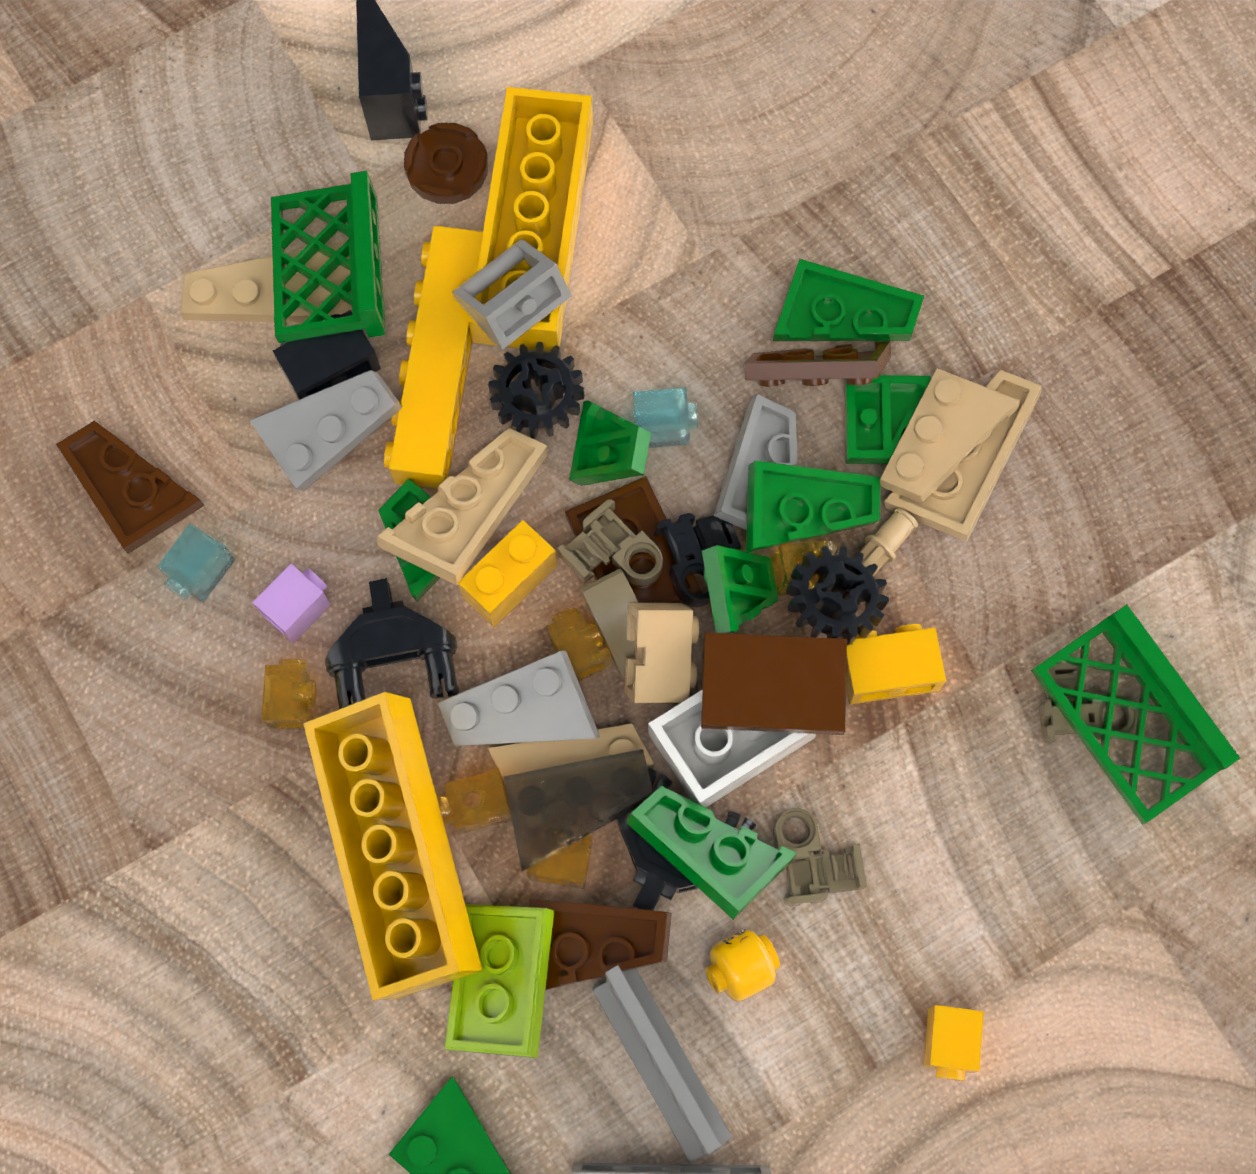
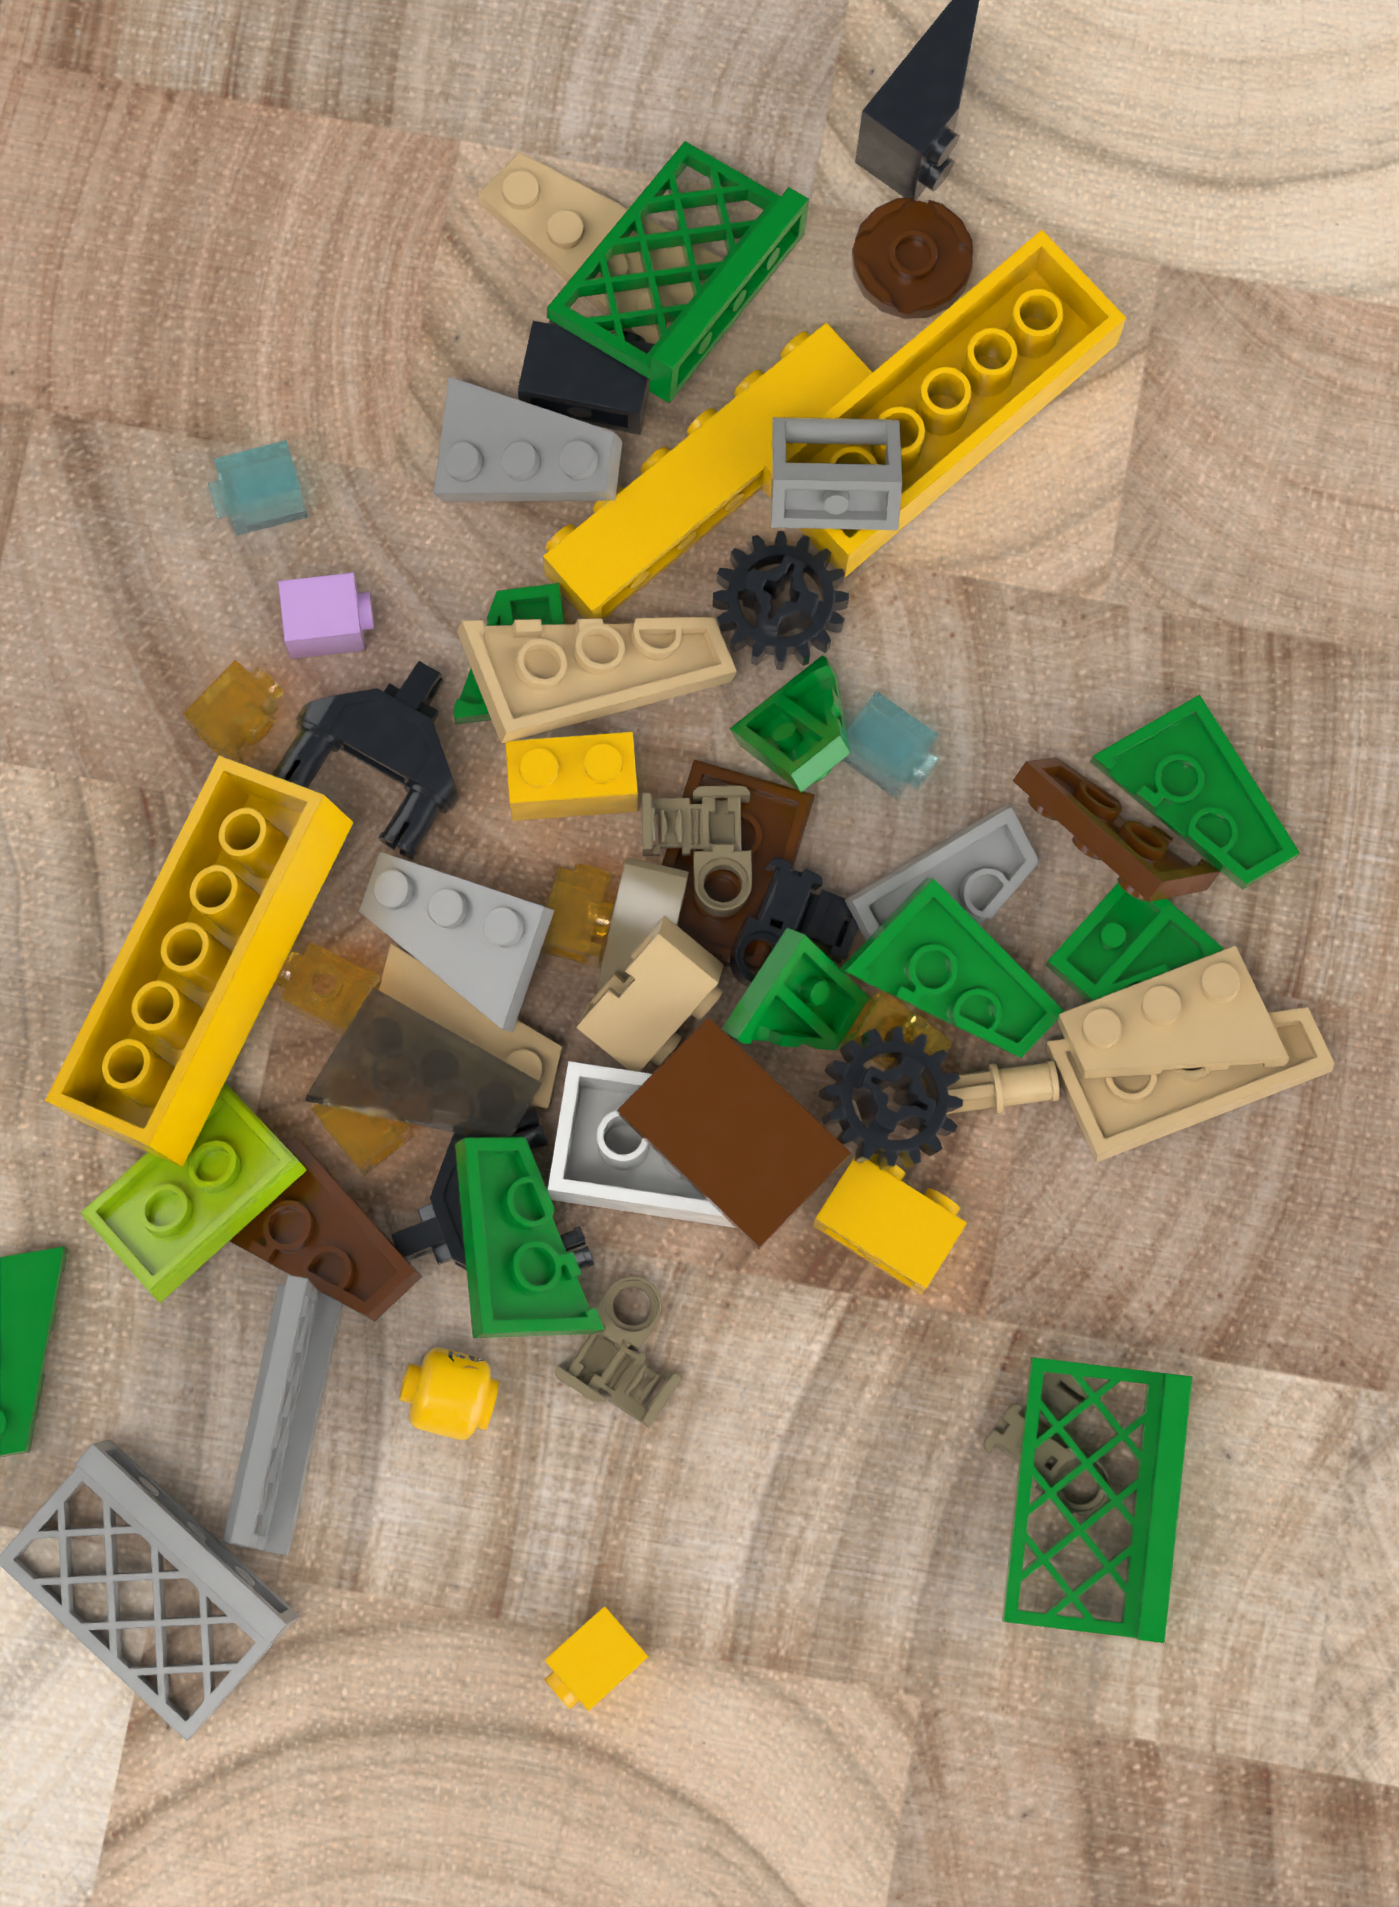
camera: 35 degrees right, 5 degrees up
(124, 487) = (258, 342): reddish brown wing -> none

